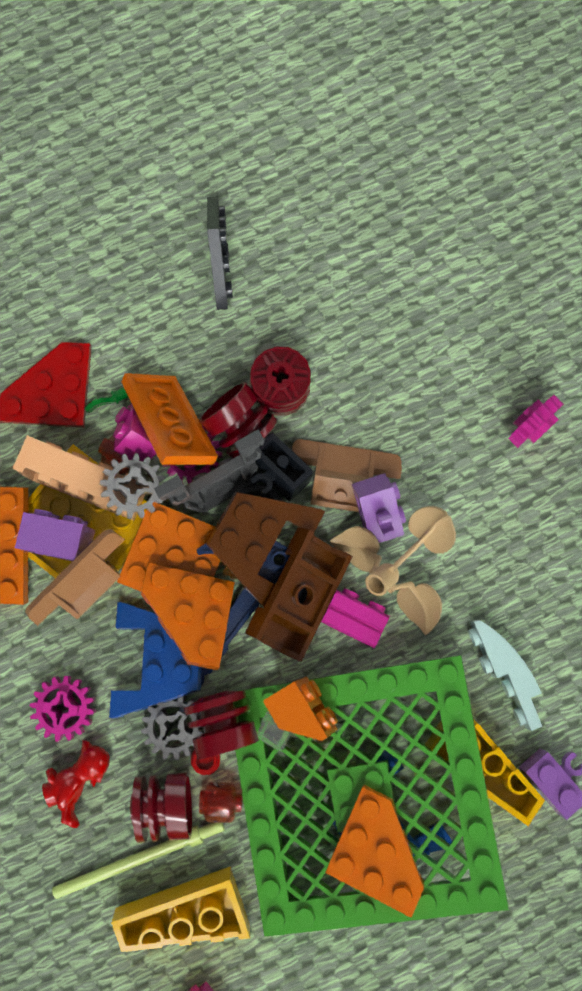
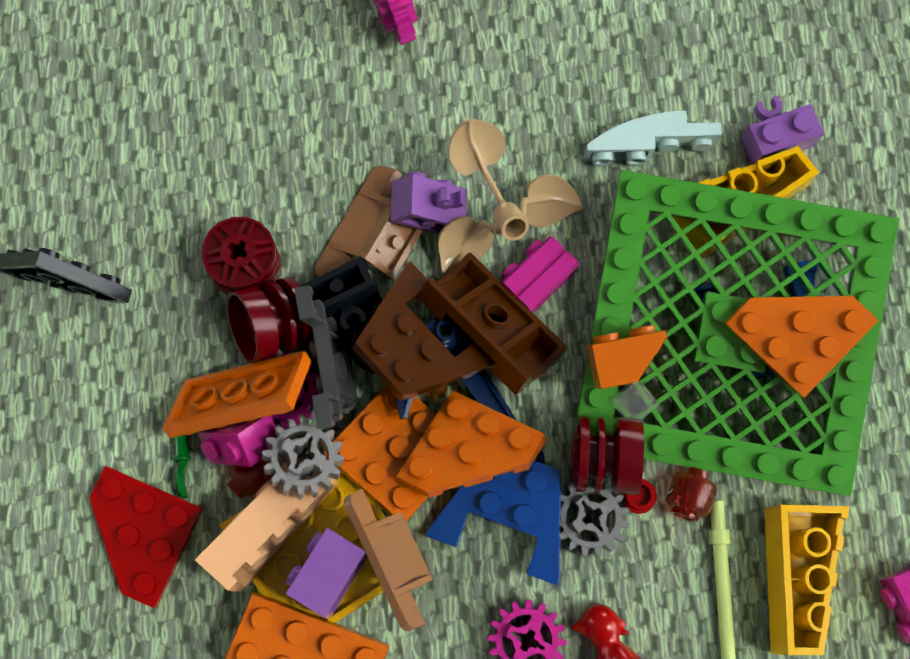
camera: 75 degrees left, 5 degrees down
(160, 807) = (678, 556): dark red wheel -> none

